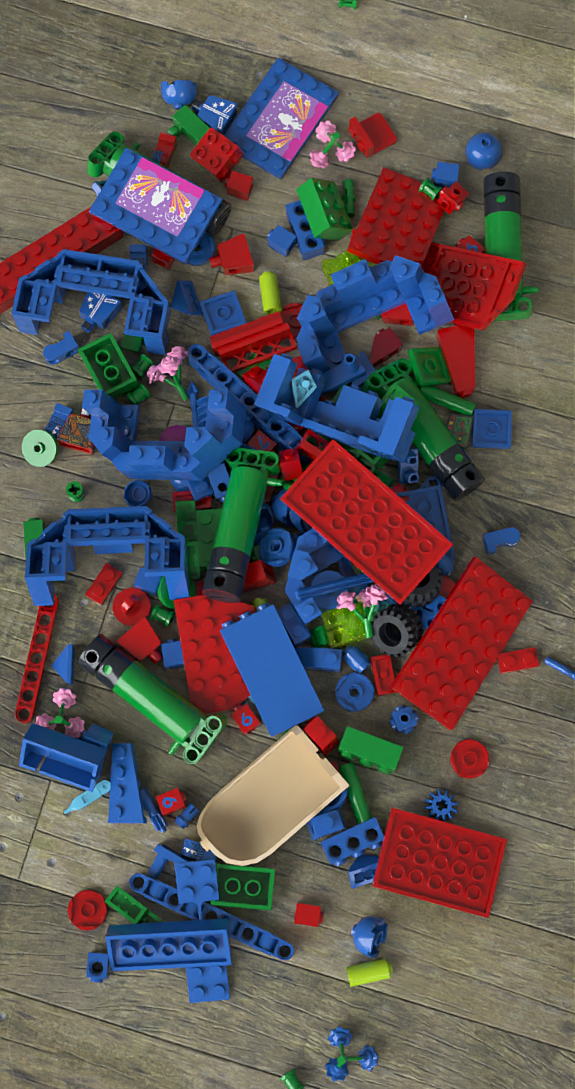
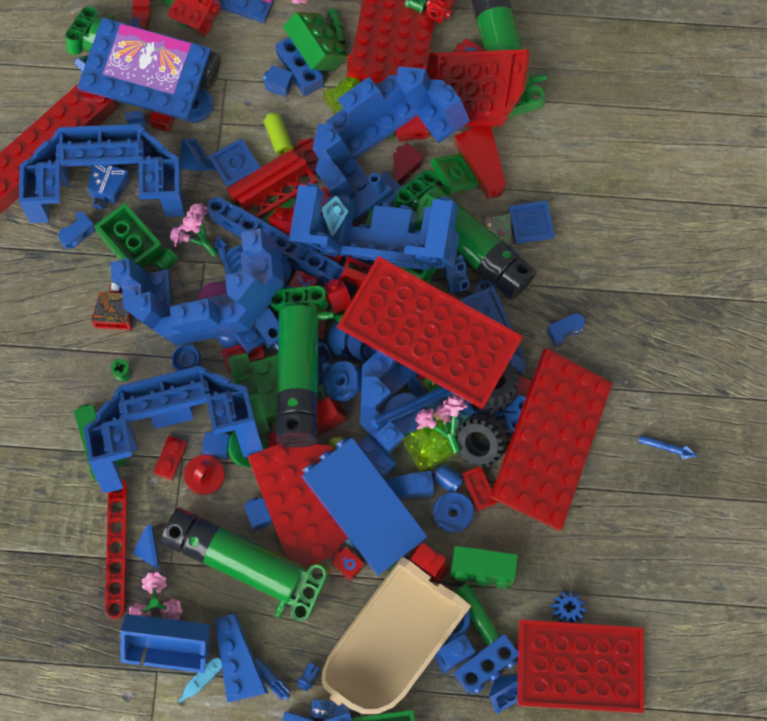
camera: 15 degrees left, 5 degrees down
(48, 446) = (84, 333): plate -> none
(58, 419) = (87, 303): blue leg -> none
(97, 736) = (198, 613): blue brick -> none
(131, 343) = (147, 209): green tile -> none
(141, 366) = (163, 230): green bush -> none
(142, 641) = (223, 506): red torso -> none
(162, 615) = (238, 476): green bush -> none
(171, 801) = (289, 665): red brick -> none
(233, 256) = (233, 105): red torso -> none
(239, 185) = (224, 35): red brick -> none
(319, 637) = (405, 463): green tile -> none
(398, 724) = (507, 535): blue brick -> none
(448, 400) = (481, 203): green piece -> none
(469, 759) = (586, 555): red tile -> none
(517, 660) = (611, 445): red plate -> none

